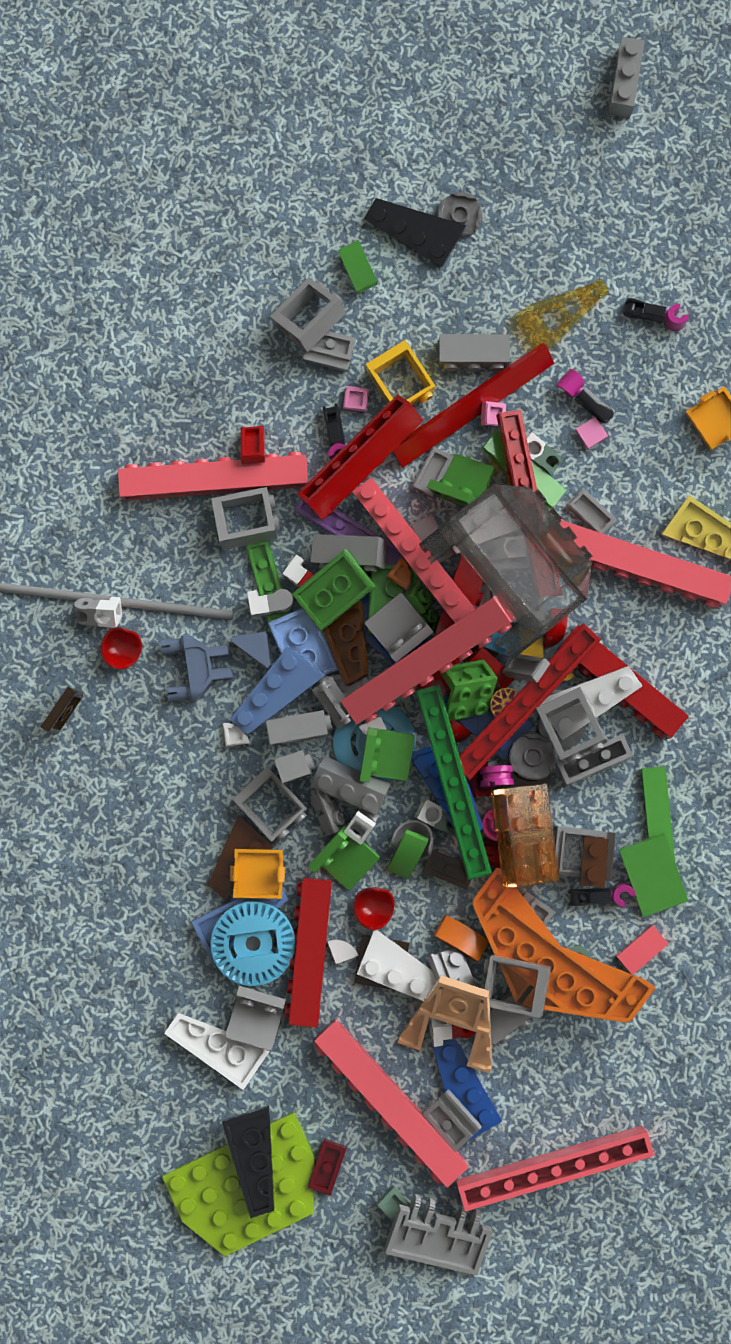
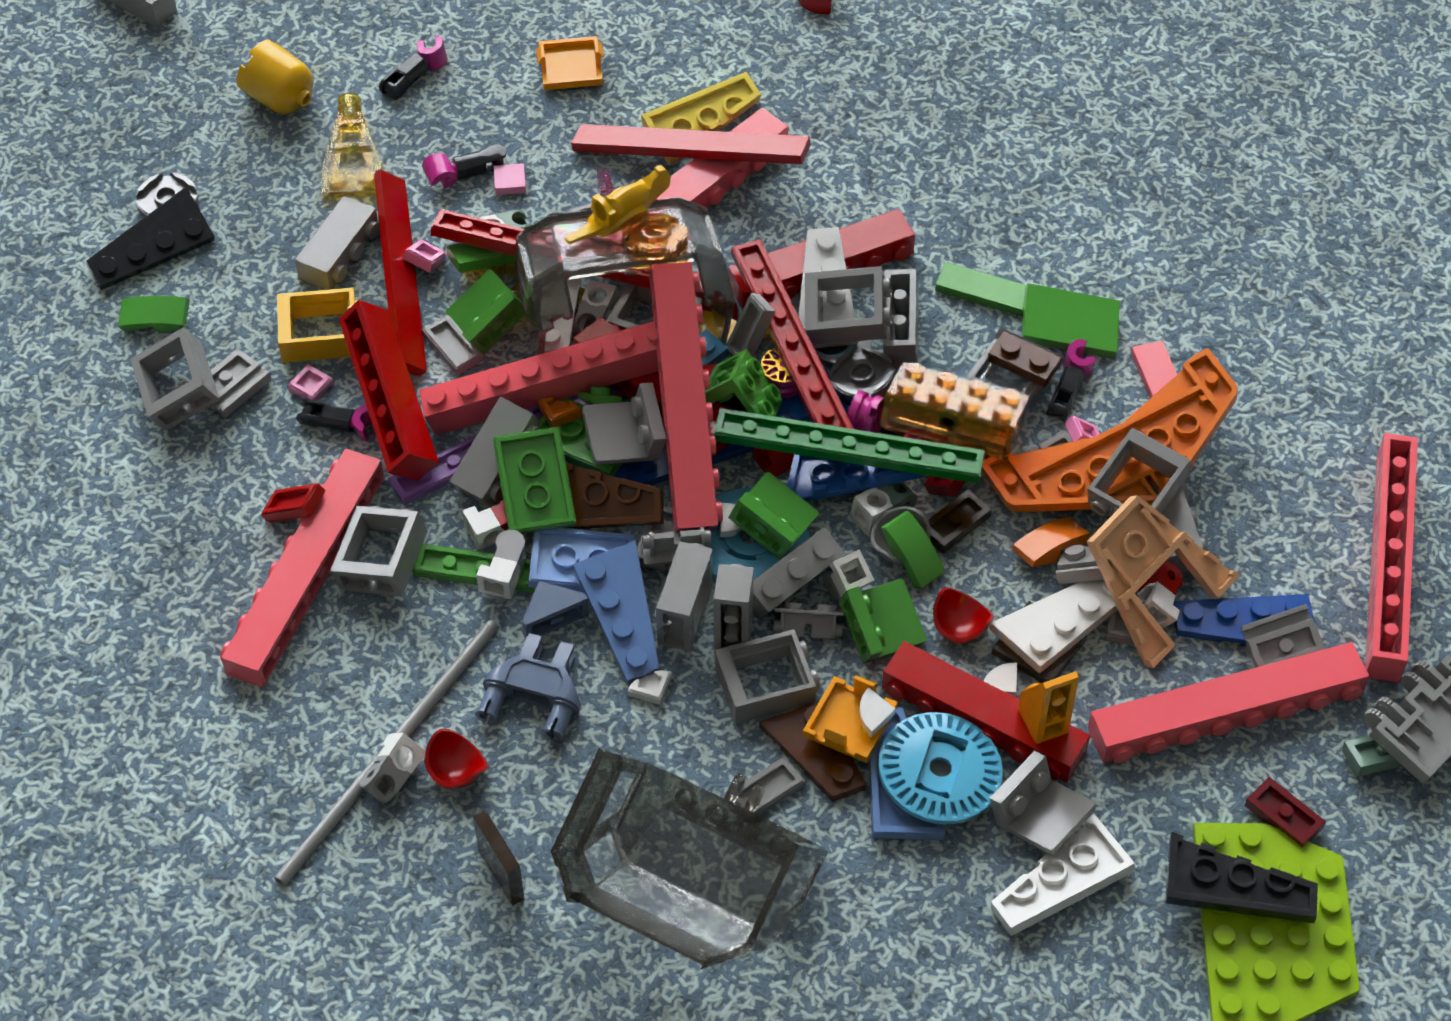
camera: 65 degrees left, 30 degrees down
(103, 831) = (682, 861): none -> clear smoke windscreen
(196, 840) = (779, 781): none -> light grey tile
(263, 888) = (874, 712): none -> white tile
(312, 998) = (1049, 707): none -> light orange slope
(519, 586) = (654, 237): none -> clear orange tile
(532, 550) = (622, 205): none -> yellow animal
(559, 924) = (1080, 429): none -> bright pink tile
(591, 228) = (276, 78): none -> yellow cylinder
(614, 502) = (604, 182): none -> clear pink tile
(674, 546) = (691, 144): none -> tile

